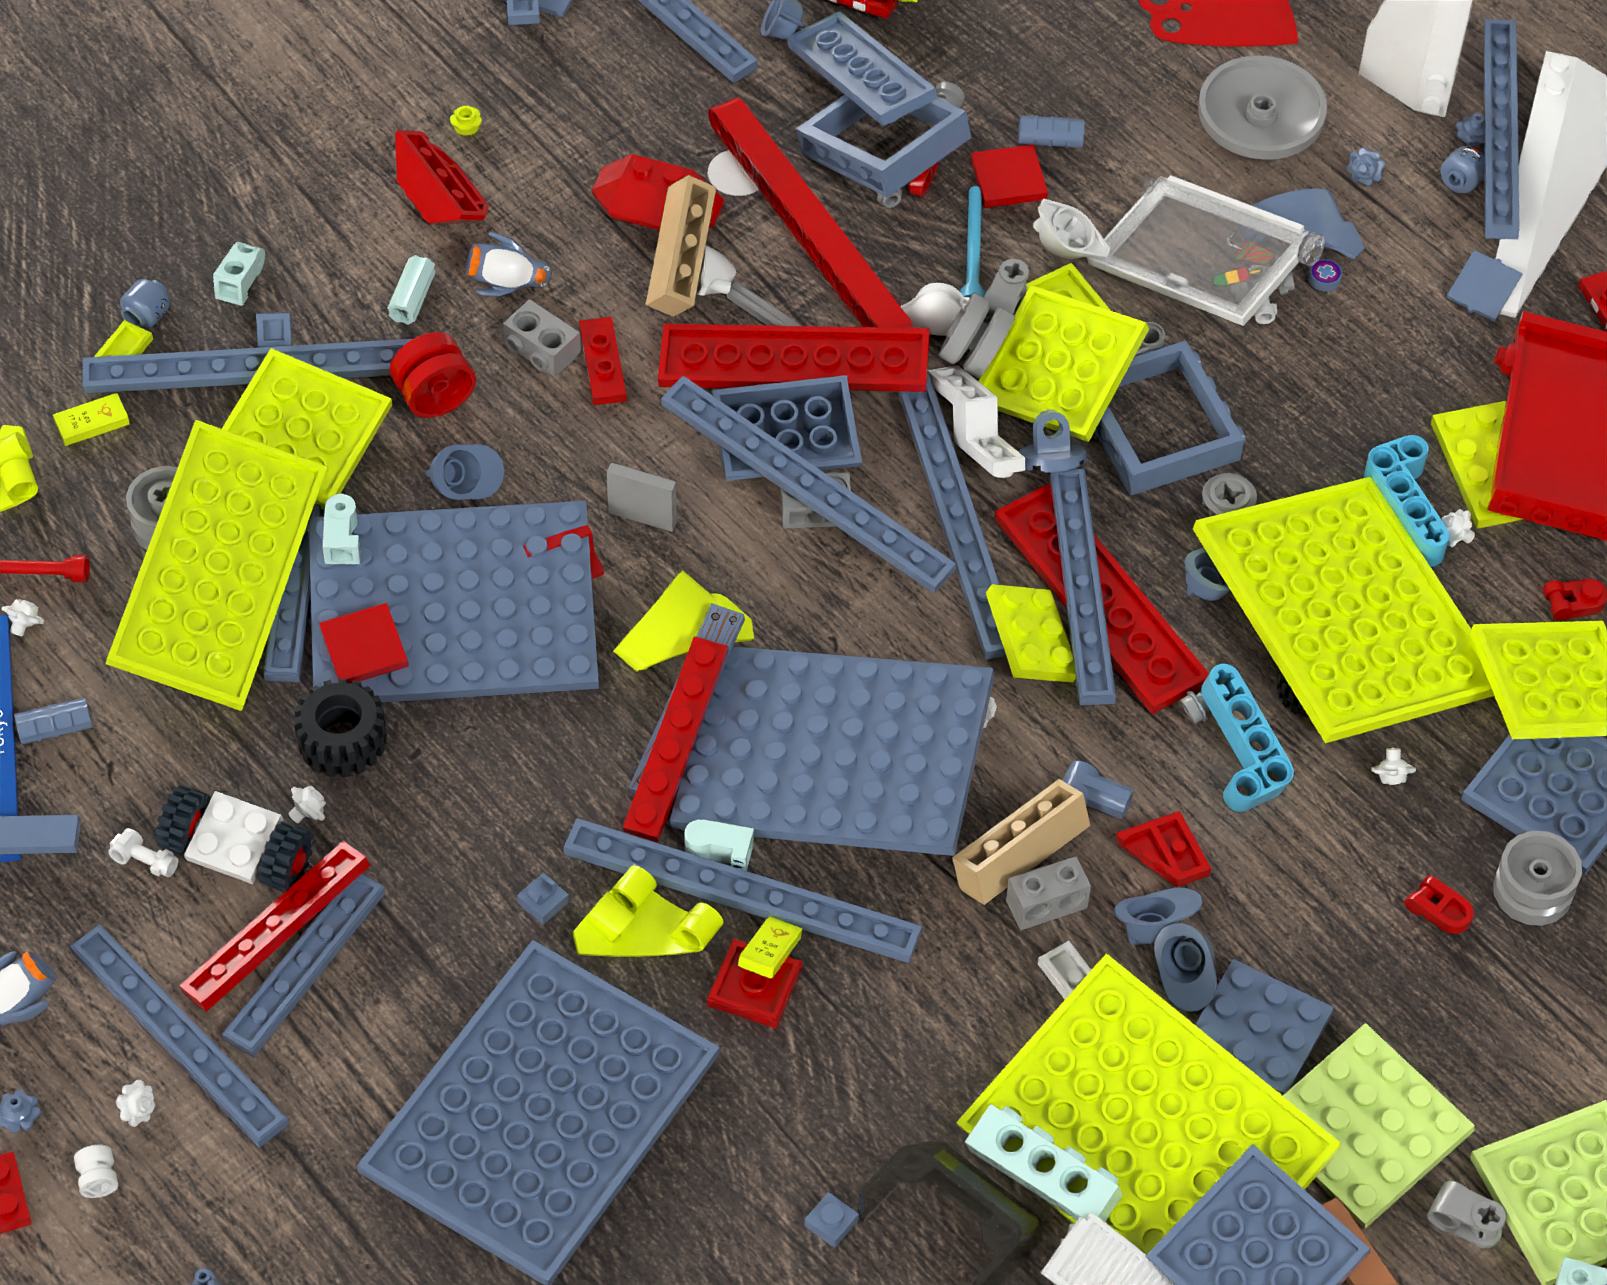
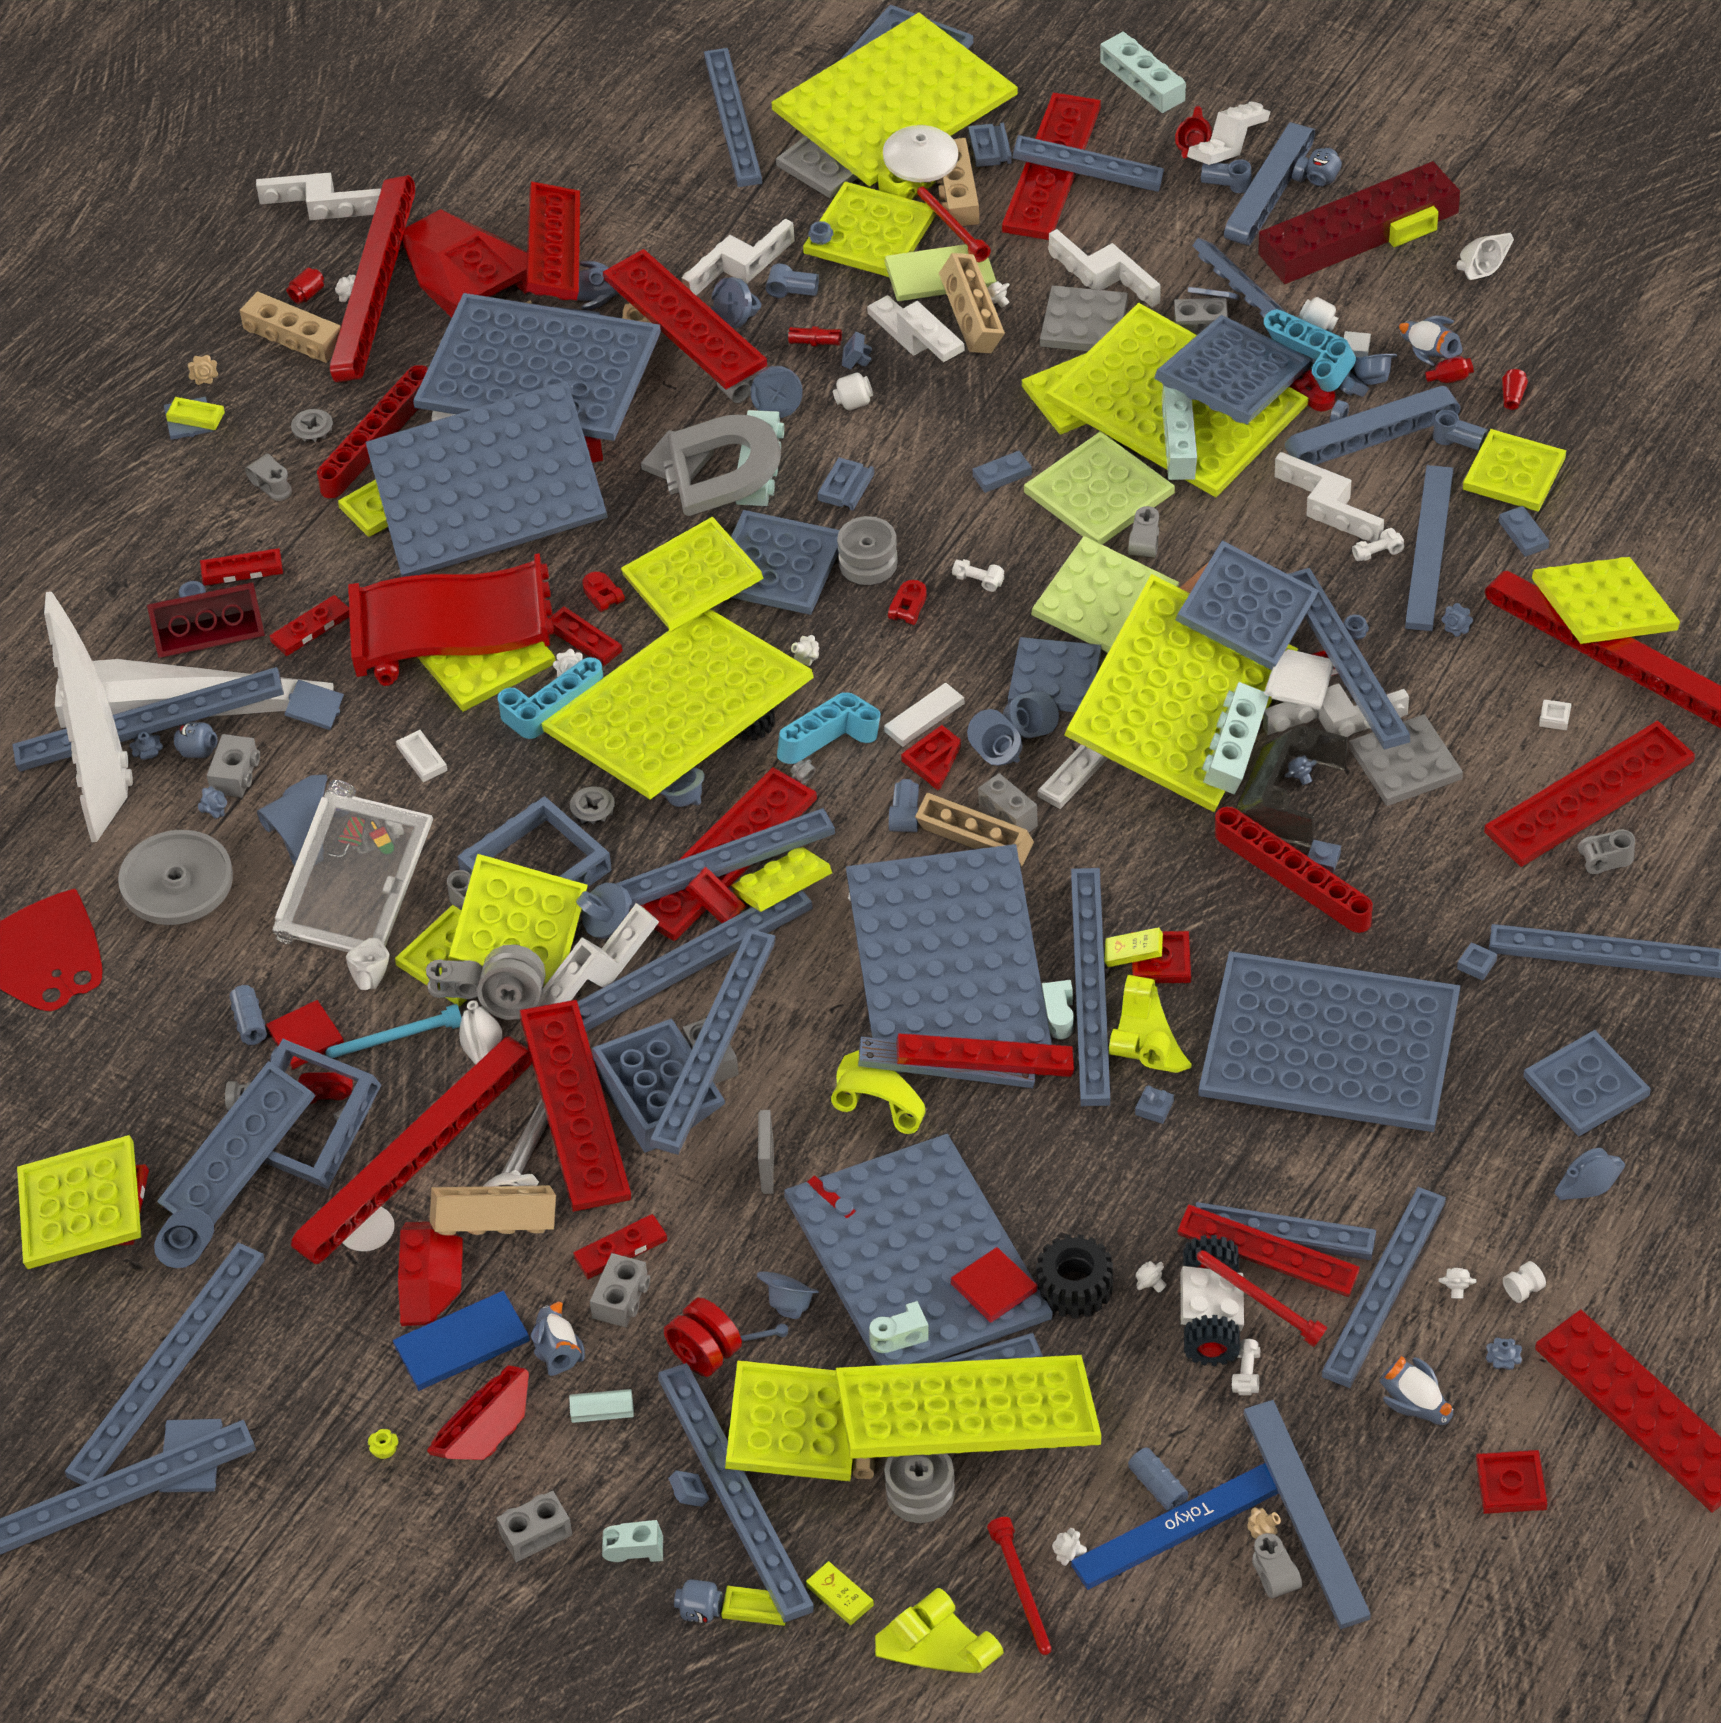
camera: 105 degrees left, 5 degrees down
(152, 929) = (1310, 1330): none -> red piece
(302, 203) = (536, 1532): none -> light grey brick
(436, 420) = (781, 1330): none -> sand blue hinge
(555, 207) = (461, 1340): none -> blue tile
(807, 1182) = (1293, 869): none -> red beam
(975, 1245) = (1300, 768): none -> sand blue plant
(1031, 559) = (715, 896): none -> red tile
(1245, 865) = (924, 714): none -> white tile
(1371, 365) = (421, 755): none -> white tile
(1414, 193) = (233, 765): none -> light grey brick
(1455, 1012) = (990, 579): none -> white bar
(1507, 562) = (585, 636): none -> red tile

